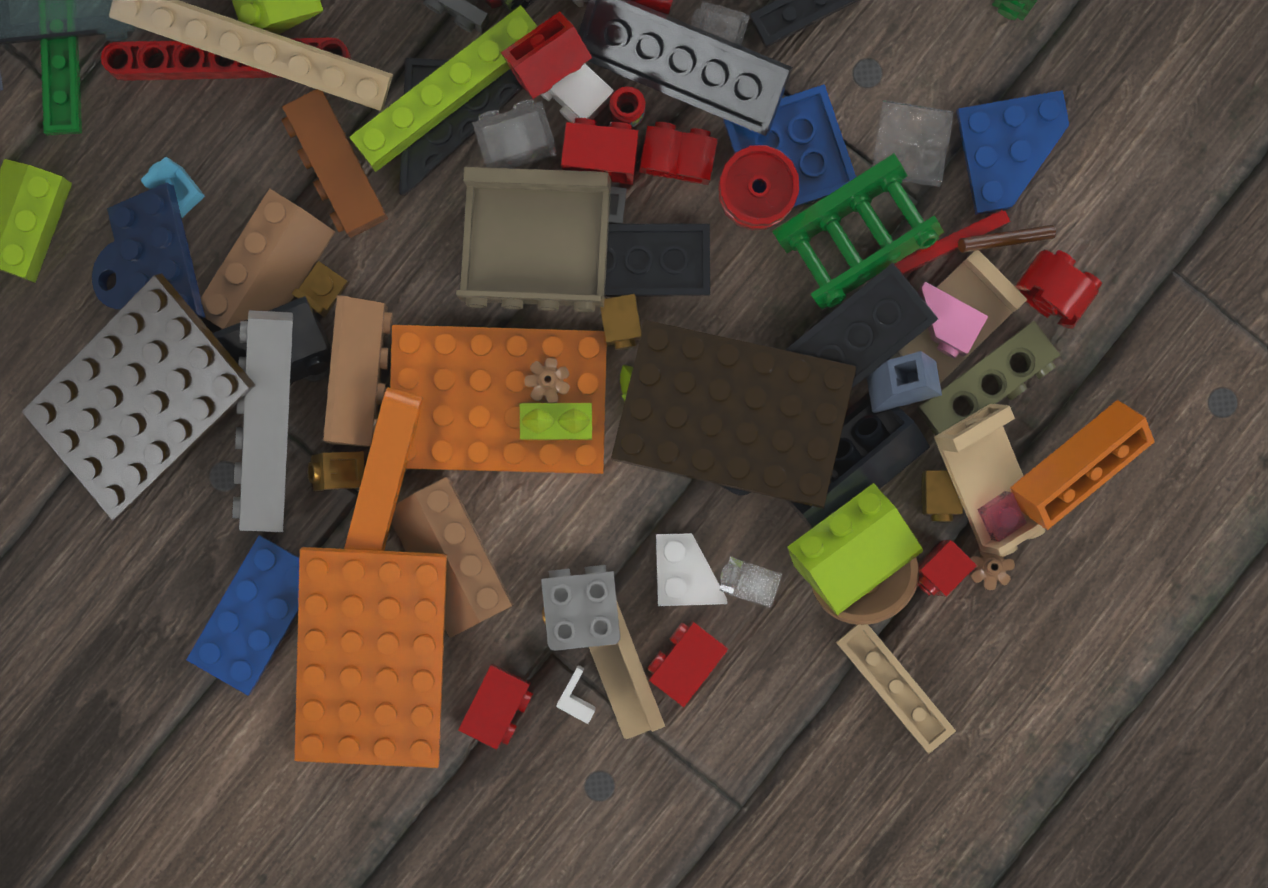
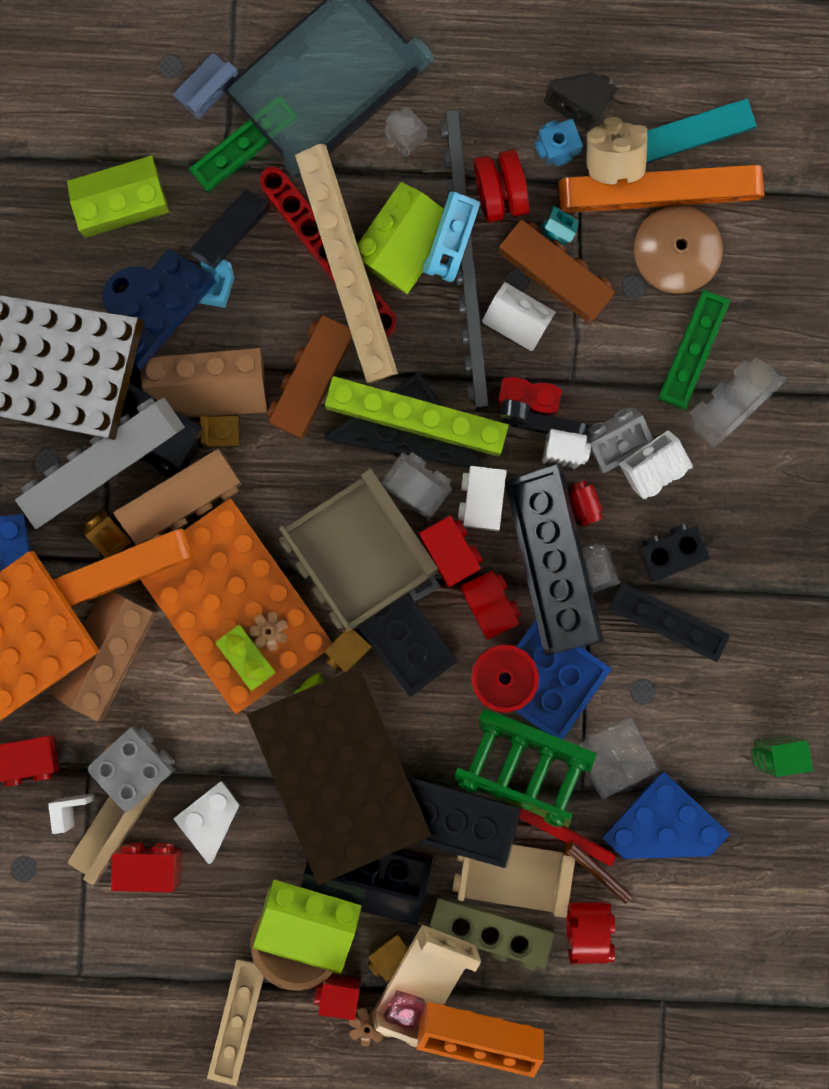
camera: 55 degrees right, 0 degrees up
(132, 134) = (230, 228): none -> black tile
(546, 55) = (487, 467): red brick -> none
(627, 96) = (502, 539): red brick -> none
(750, 582) = (234, 870): clear brick -> none
(903, 382) = (445, 876): sand blue slope -> none
(957, 321) = (514, 882): bright pink slope -> none

